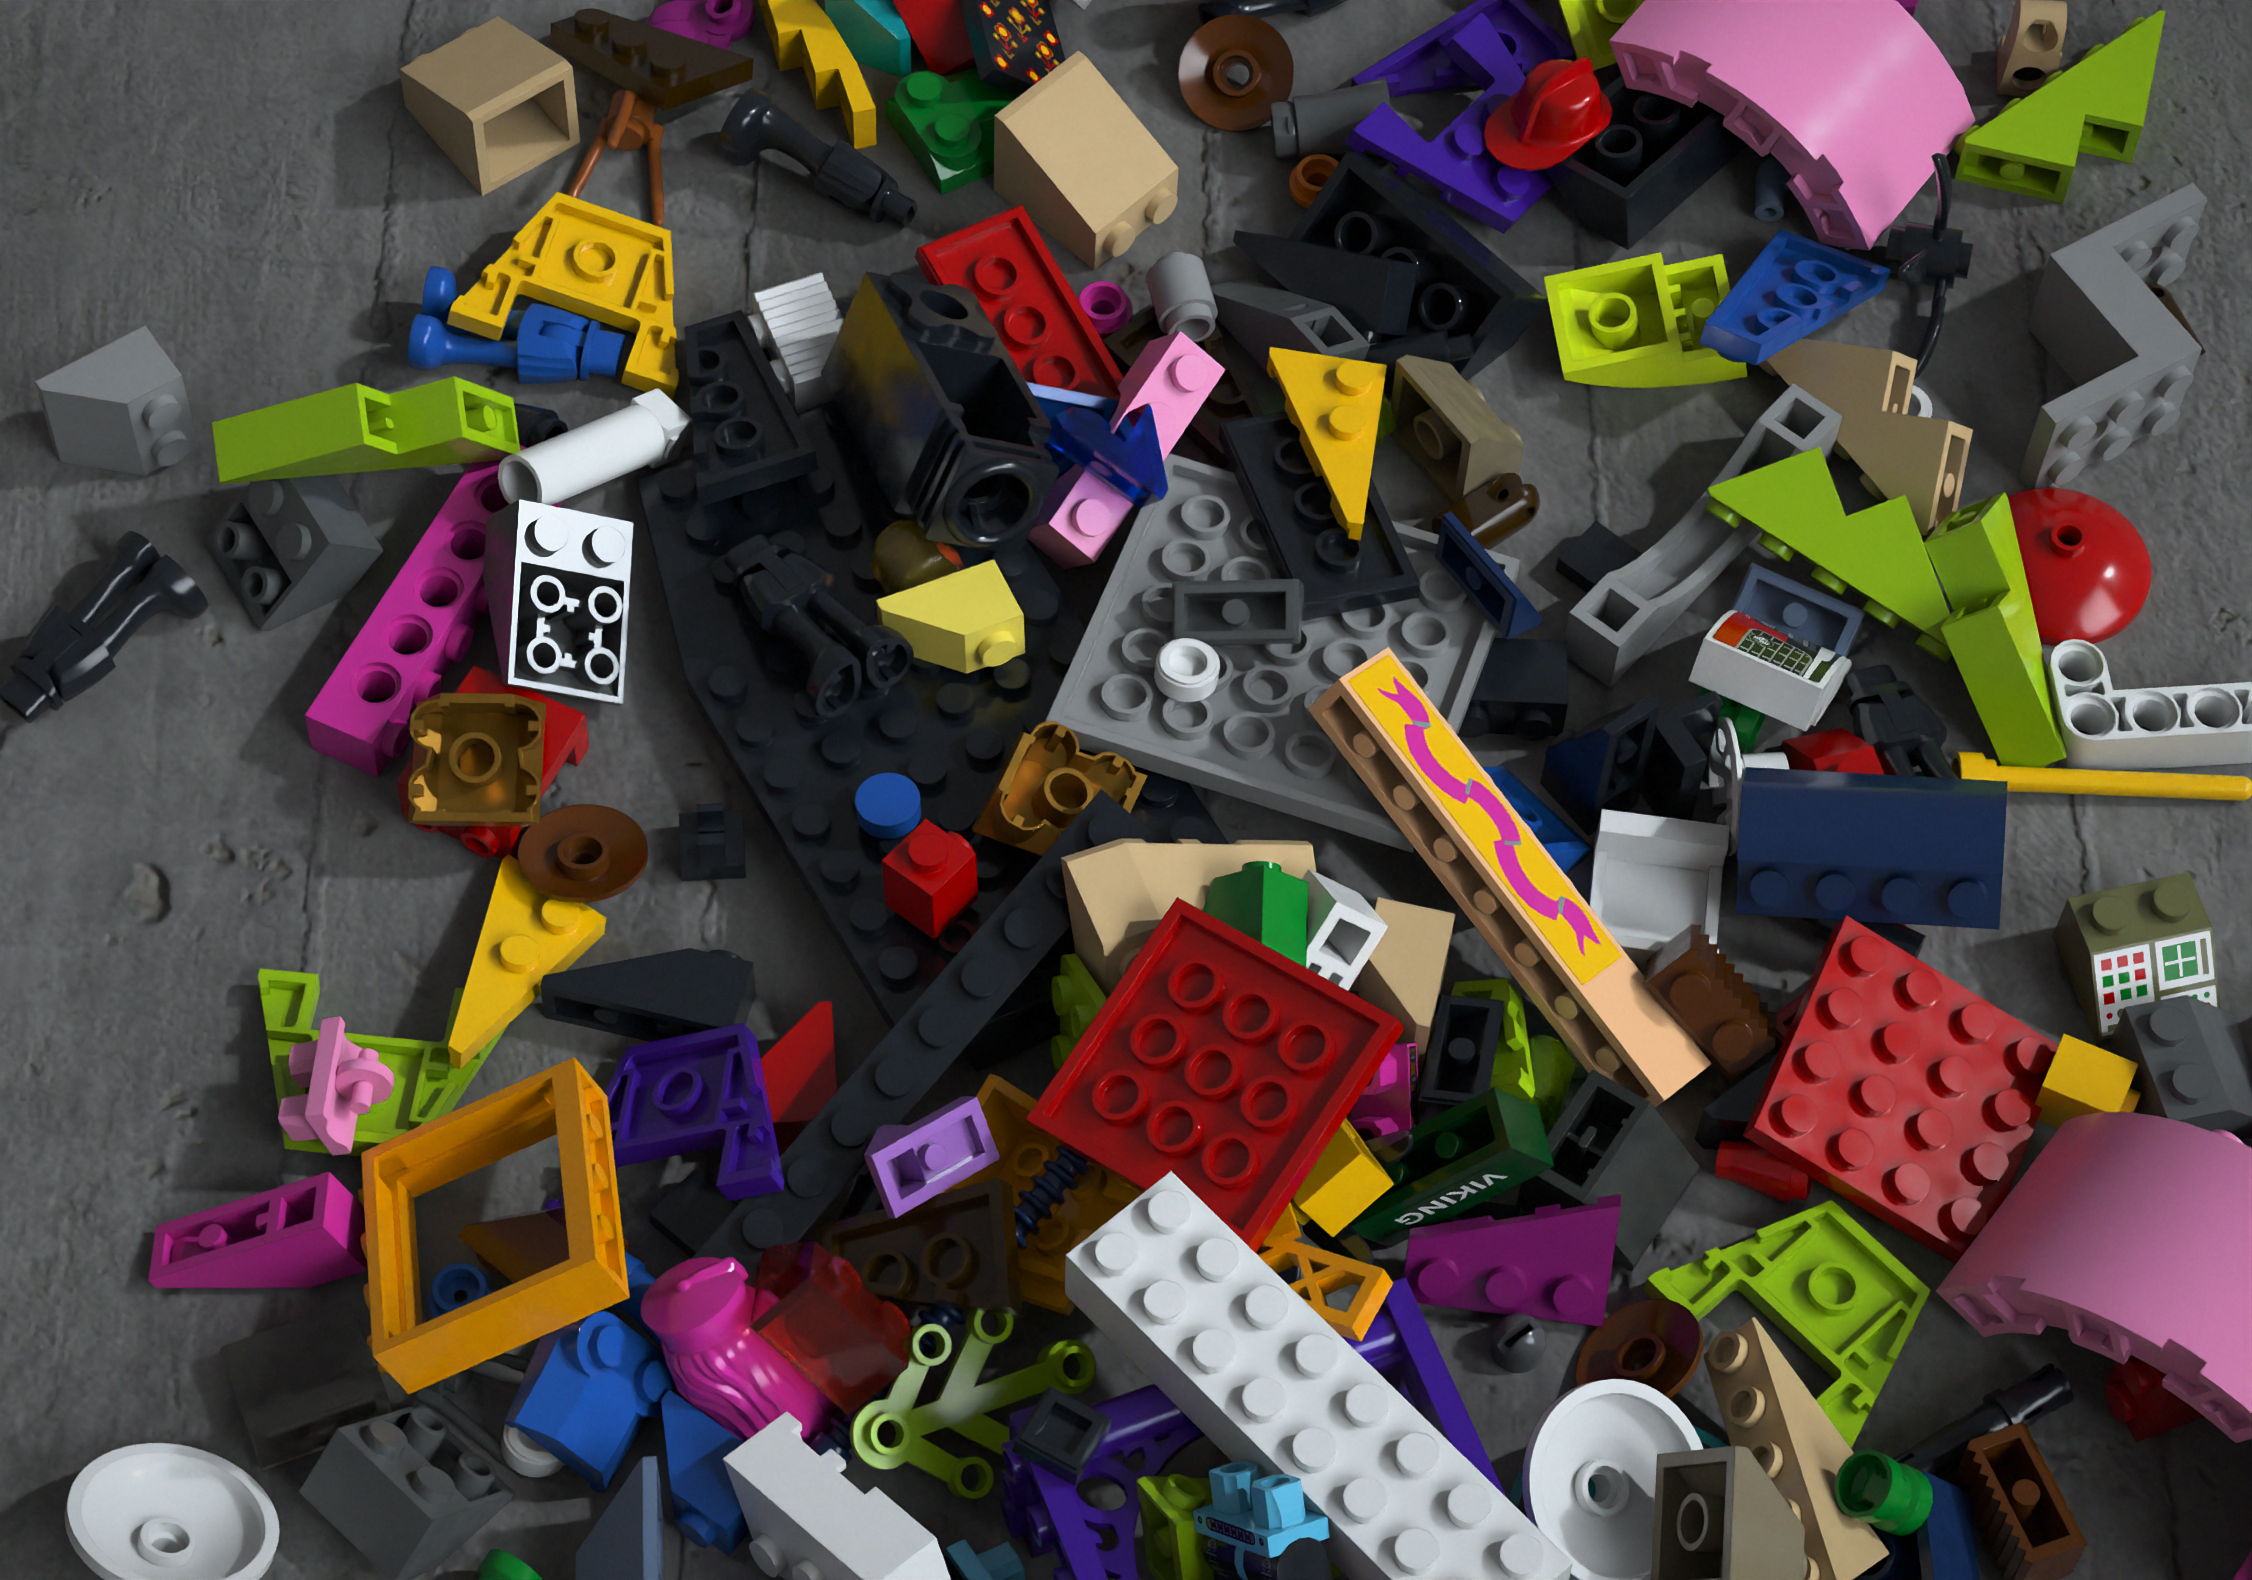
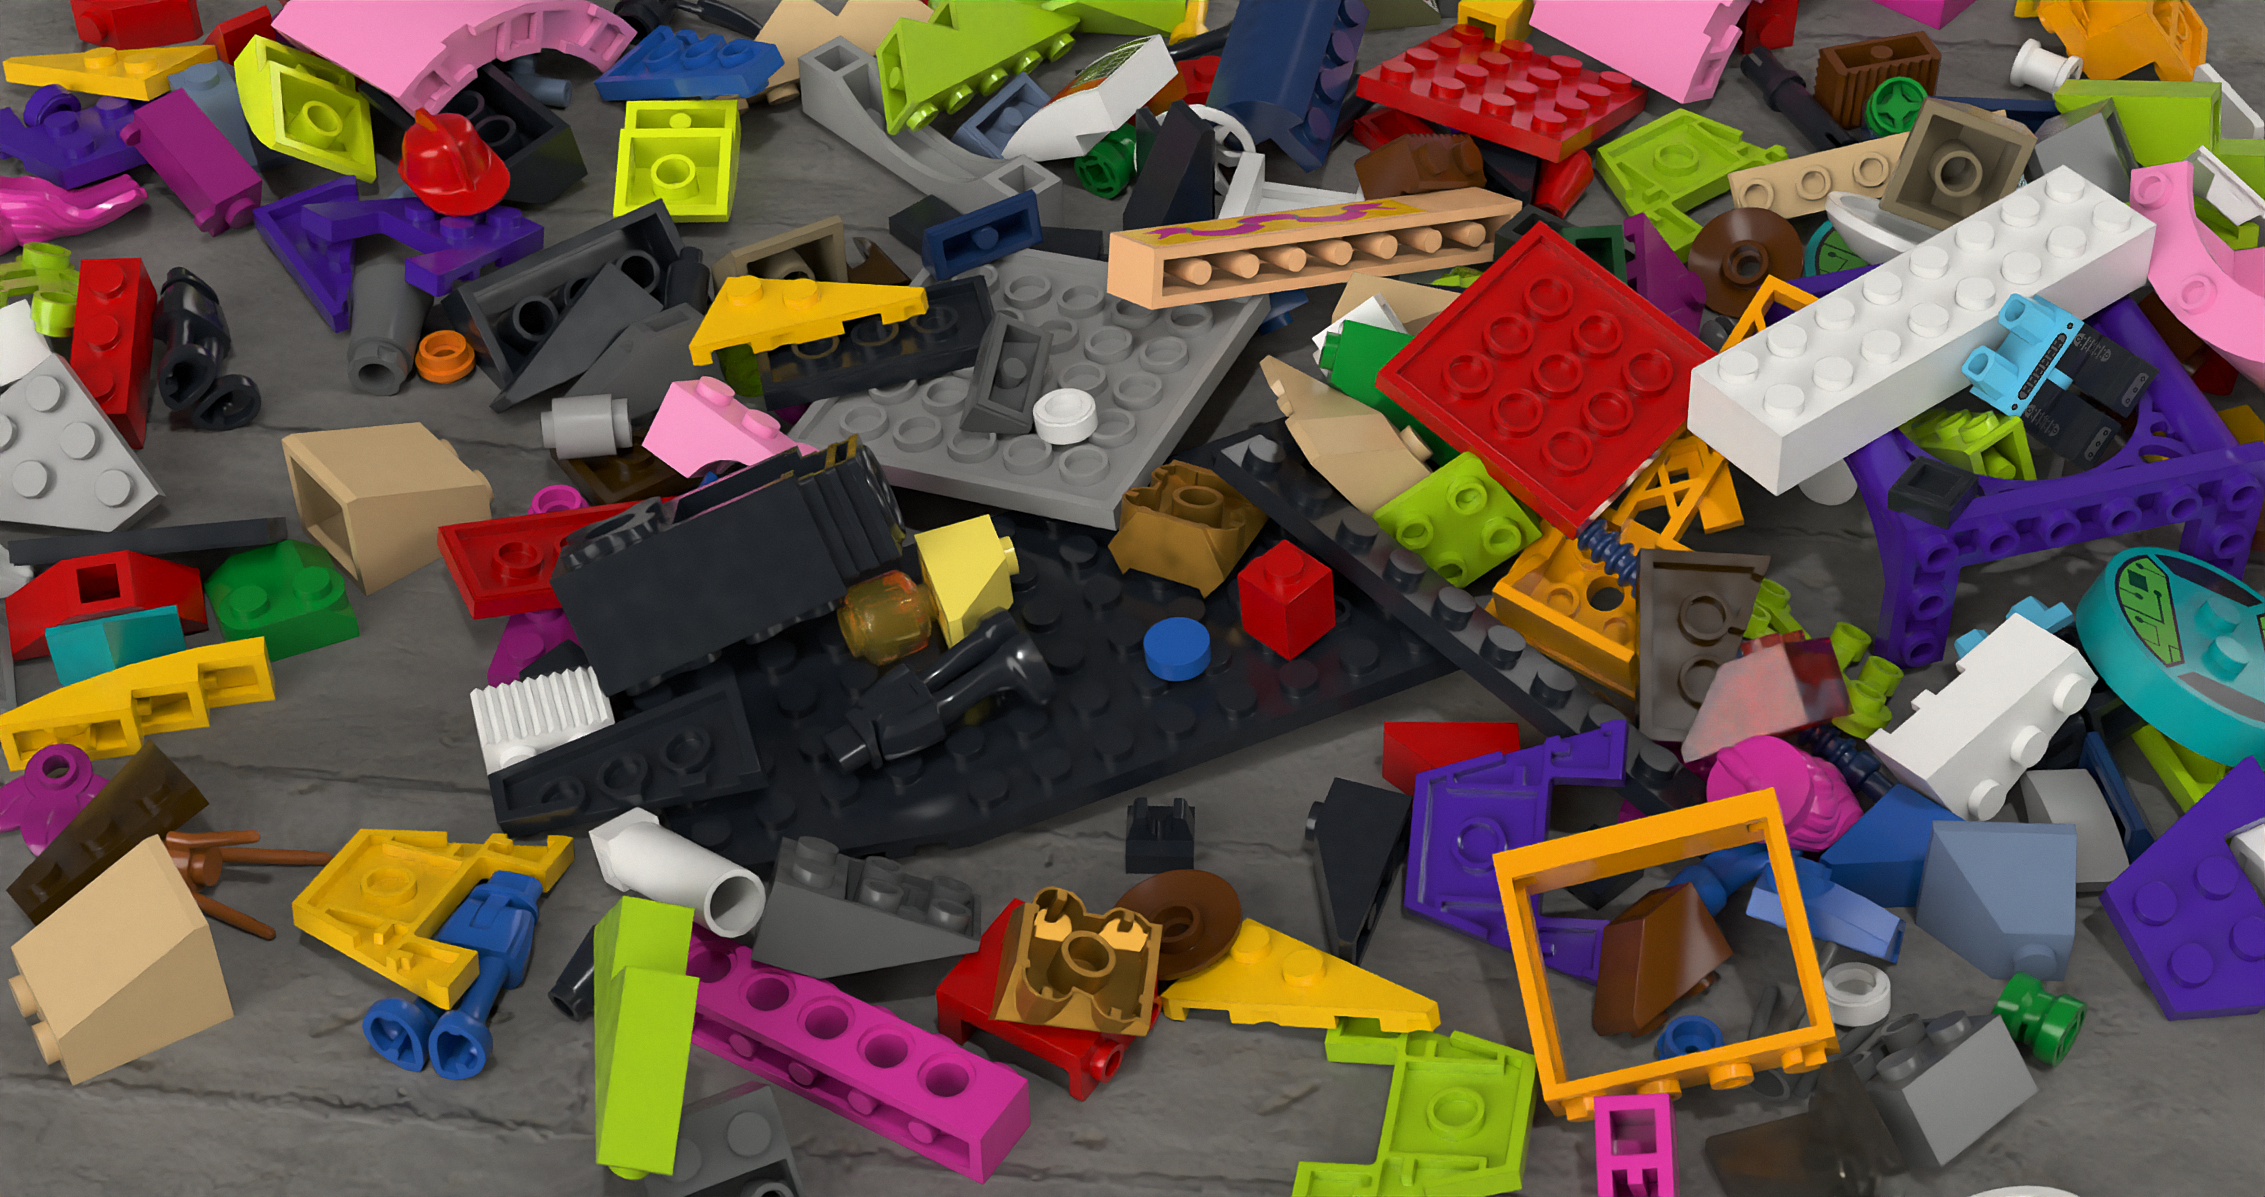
camera: 80 degrees left, 15 degrees down
(341, 1085) = (1479, 1092): bright pink hips -> none
(838, 171) = (327, 686): black piece -> none
(929, 1155) = (1602, 628): medium lavender slope -> none
(1124, 461) = (811, 417): clear blue slope -> none
(1227, 43) = (306, 375): reddish brown dish -> none

